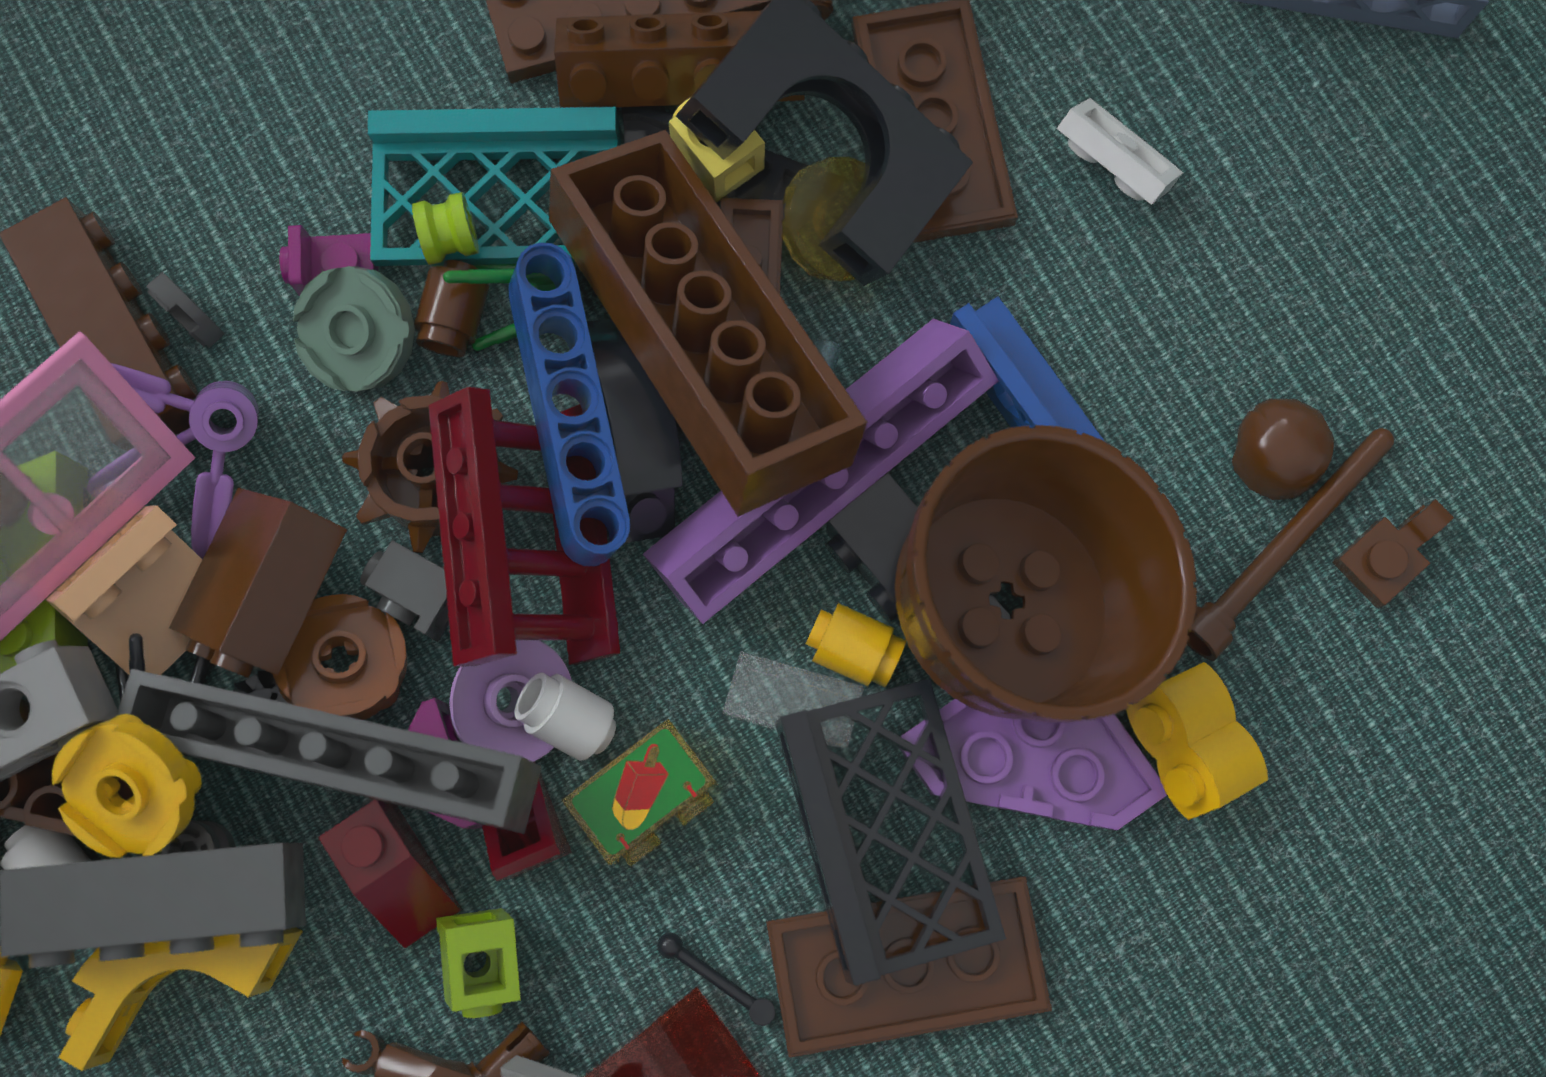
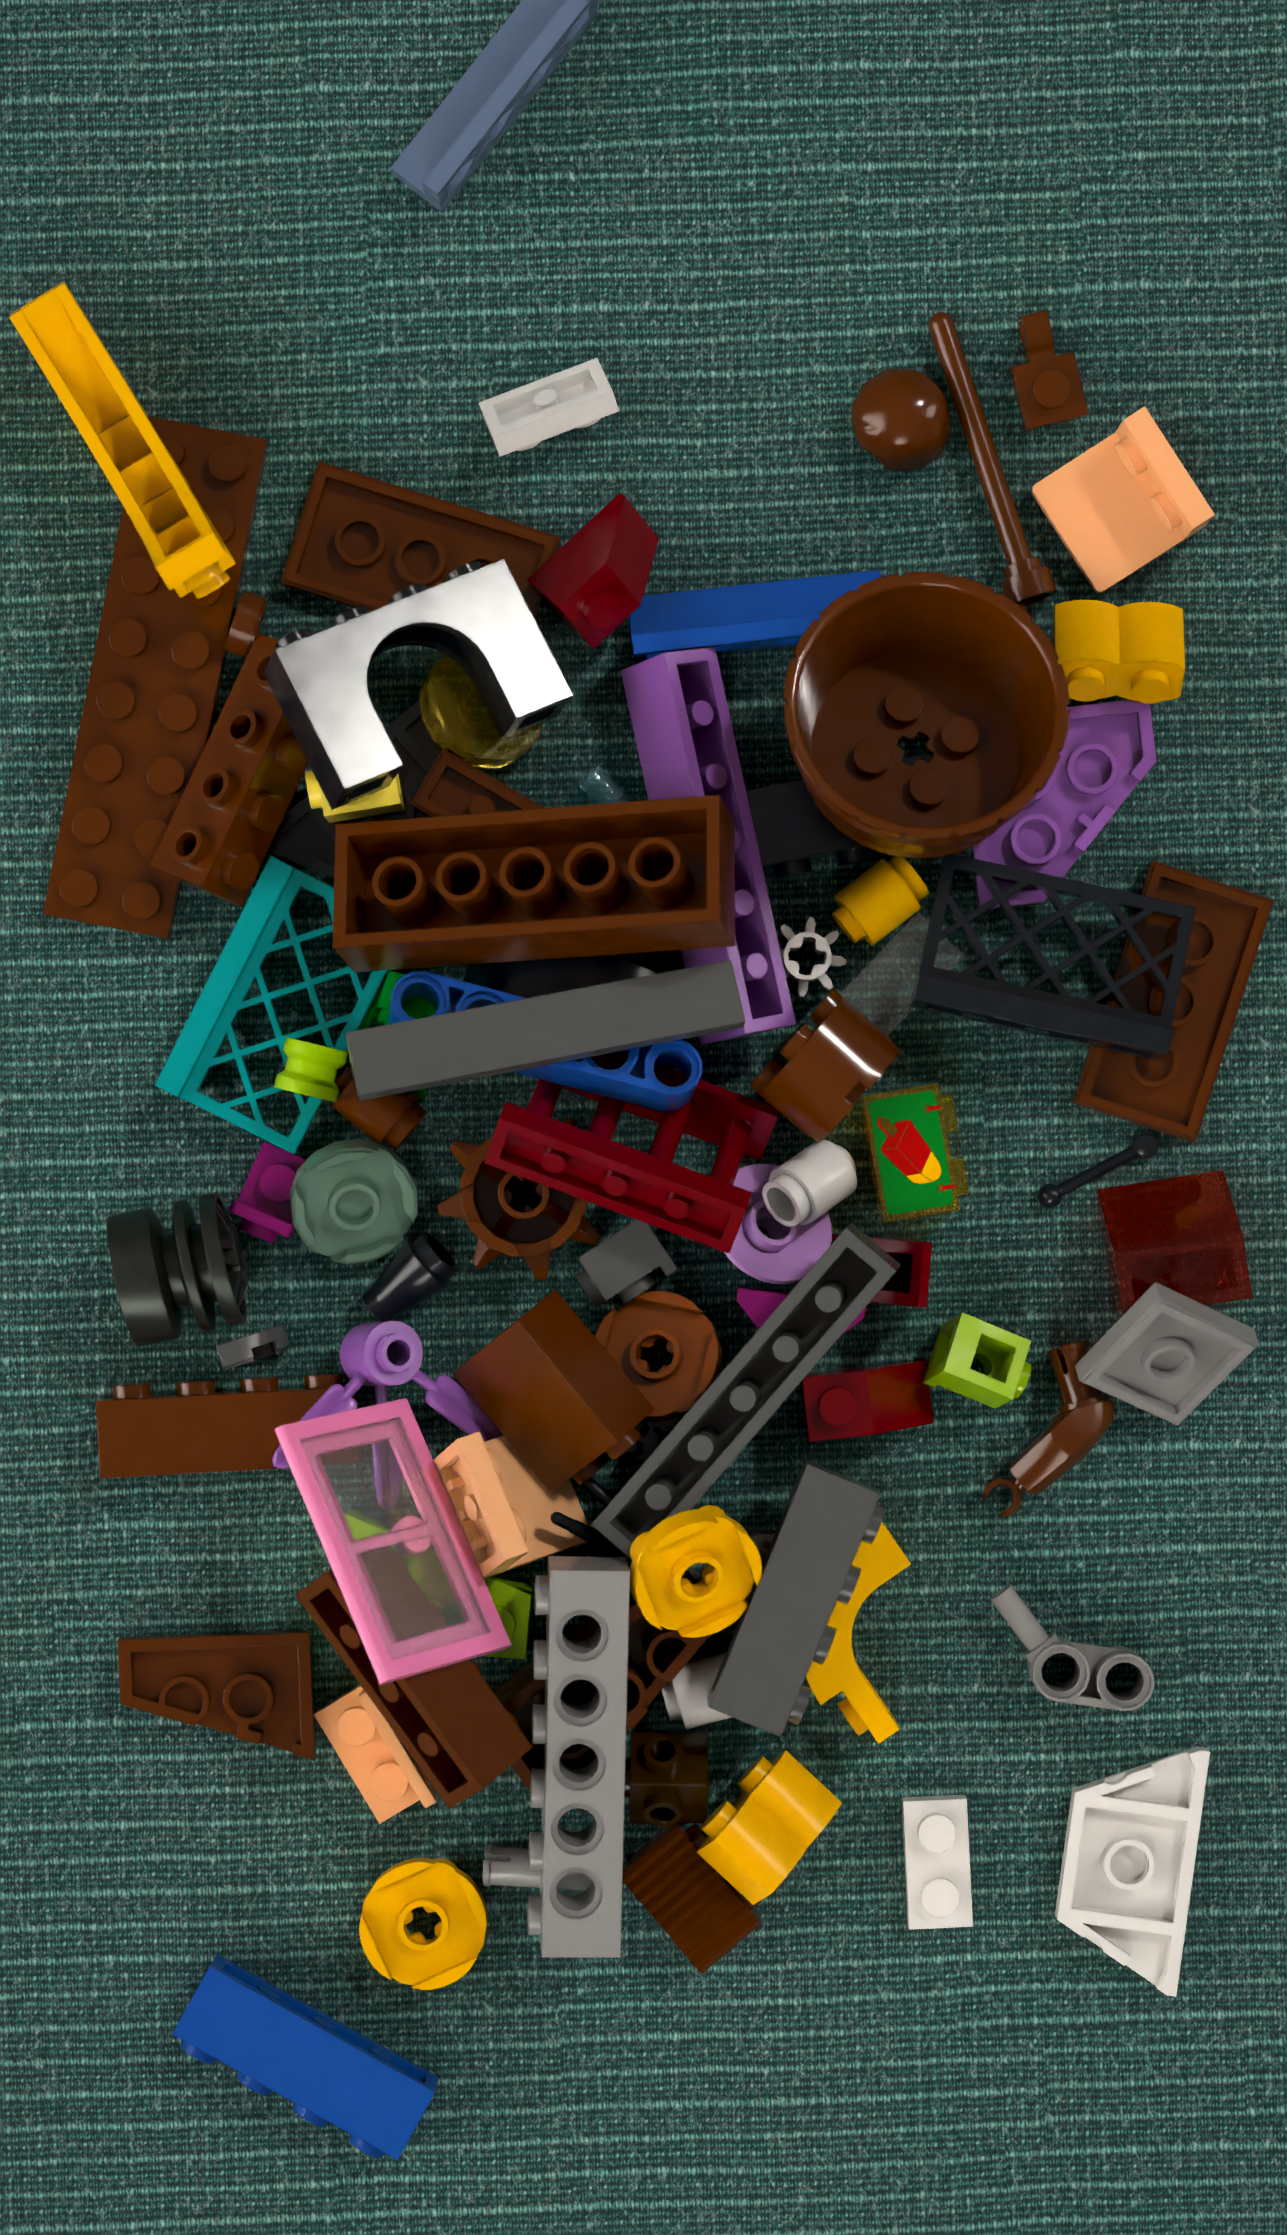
camera: 60 degrees left, 10 degrees up
(212, 204) = (177, 1269): none -> pearl dark grey wheel
(315, 414) = (412, 1276): none -> black cone
(571, 388) = (544, 1030): none -> dark grey tile
(677, 670) = (826, 1067): none -> reddish brown brick
(760, 623) = (820, 946): none -> white gear
(1009, 258) = (599, 572): none -> dark red slope
(1330, 678) = (1122, 502): none -> light nougat bracket

